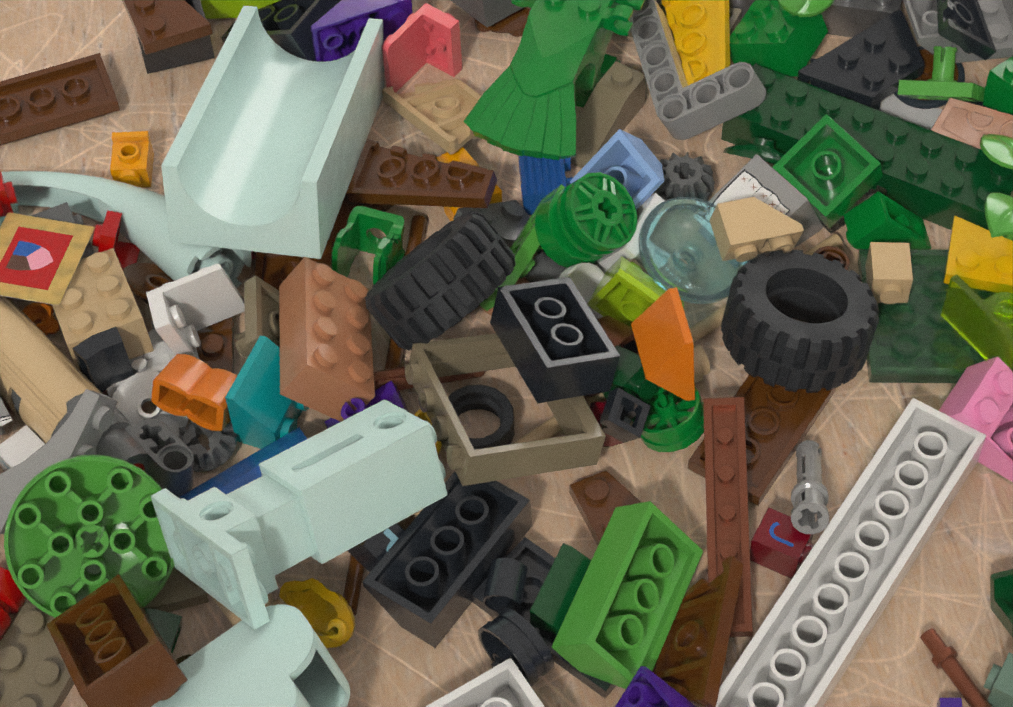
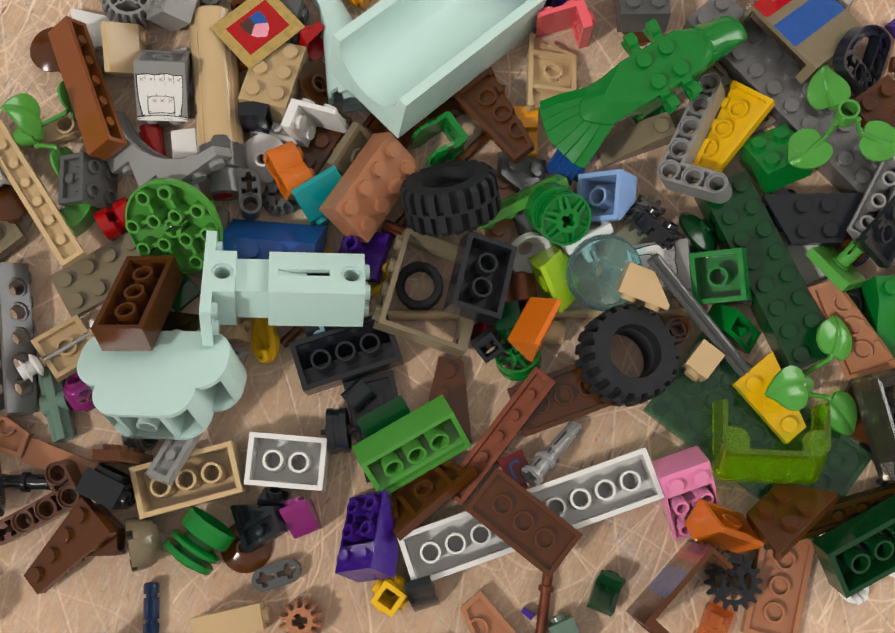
camera: 40 degrees right, 25 degrees up
(724, 164) = (665, 230): none -> black hinge
(840, 219) = (698, 314): none -> dark grey axle
(849, 571) = (523, 522): none -> reddish brown plate

